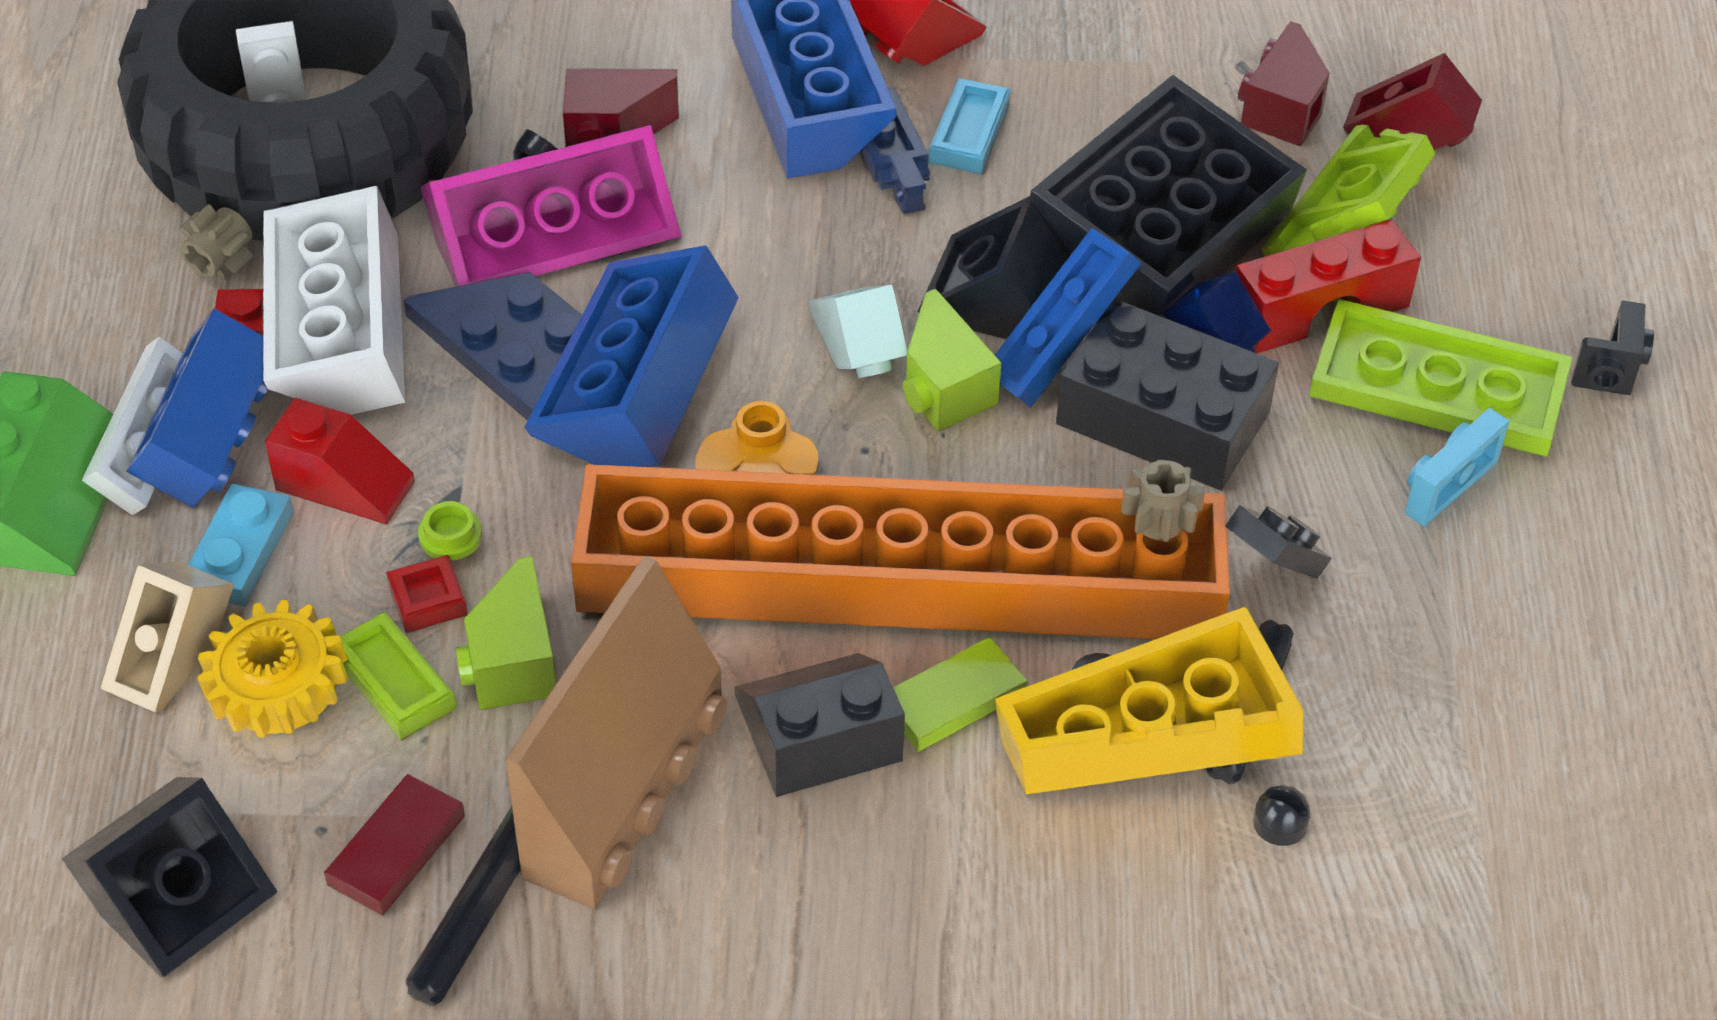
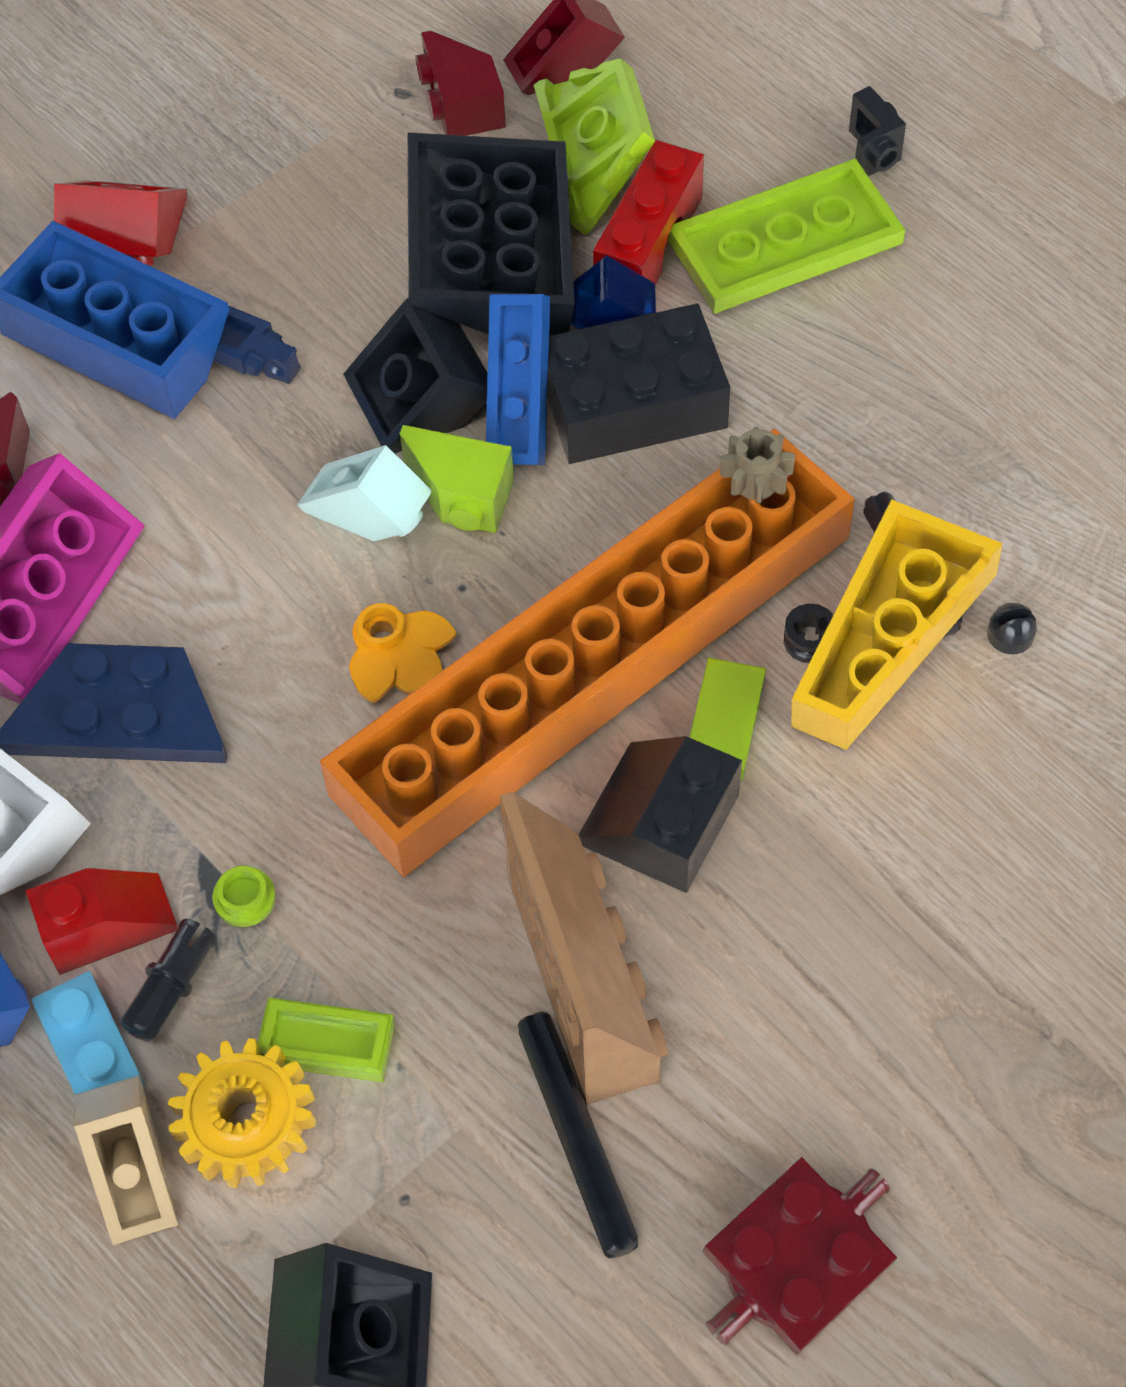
camera: 40 degrees left, 10 degrees up
(332, 545) = (167, 981): none -> black axle
(394, 844) = (476, 1161): dark red tile -> none
(426, 593) = (277, 957): red tile -> none
(508, 642) = (395, 940): lime slope -> none
(635, 359) = (236, 650): blue slope -> none
(969, 126) = (262, 277): medium azure tile -> none
(1280, 539) = (829, 433): black plate -> none
(1462, 461) = (864, 310): medium azure plate -> none

